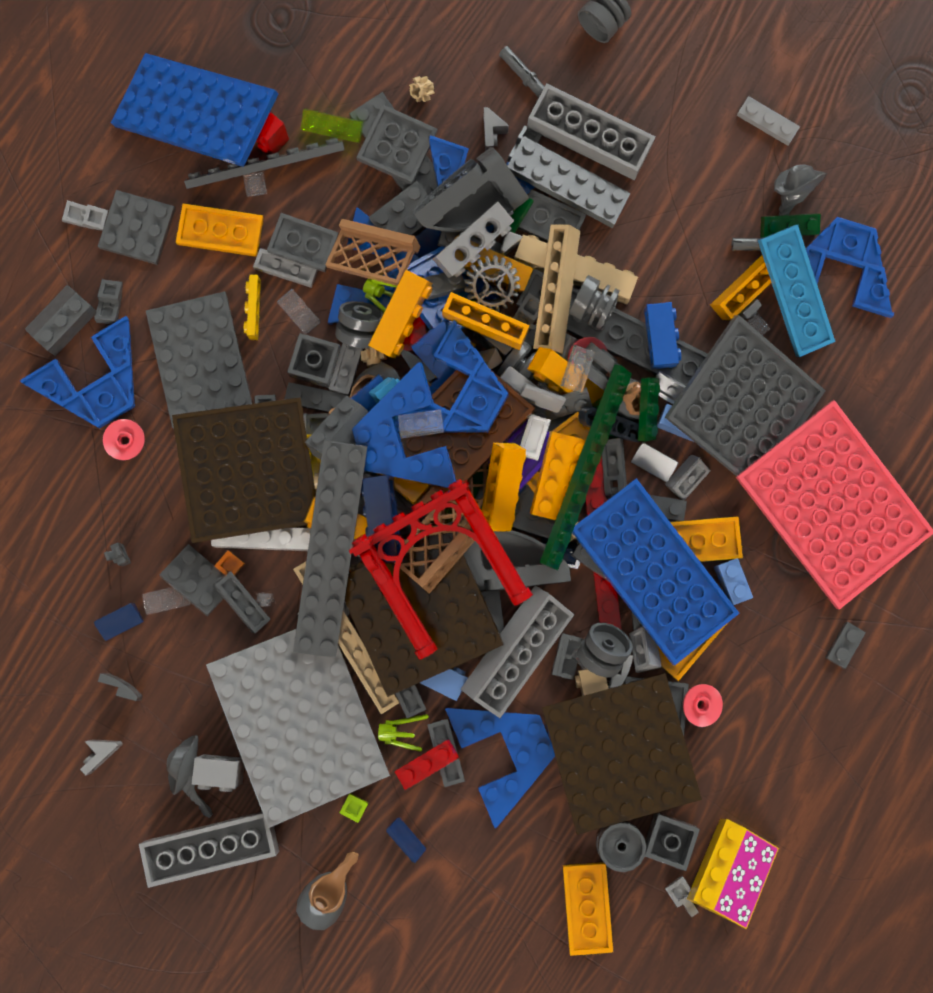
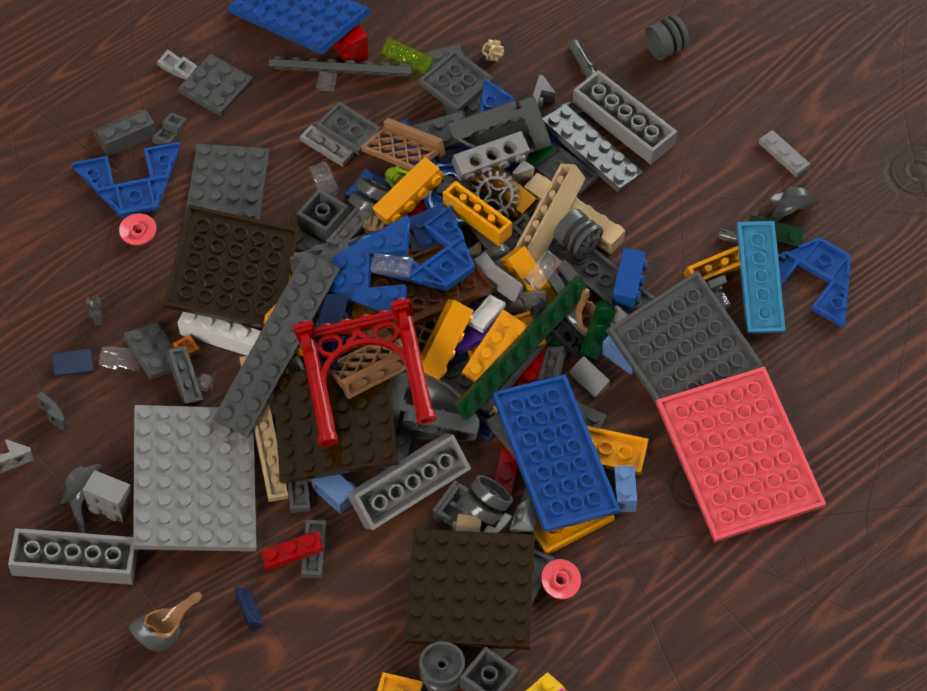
camera: 20 degrees right, 25 degrees down
(219, 230) = (283, 104): light orange plate -> none
(252, 307) = (287, 165): yellow plate -> none
(354, 807) = (213, 567): lime plate -> none
(389, 733) = (270, 517): lime plant -> none
(526, 743) = (389, 567): blue wing -> none
(687, 477) = (616, 399): light grey slope -> none
(845, 645) = (712, 574): dark grey plate -> none

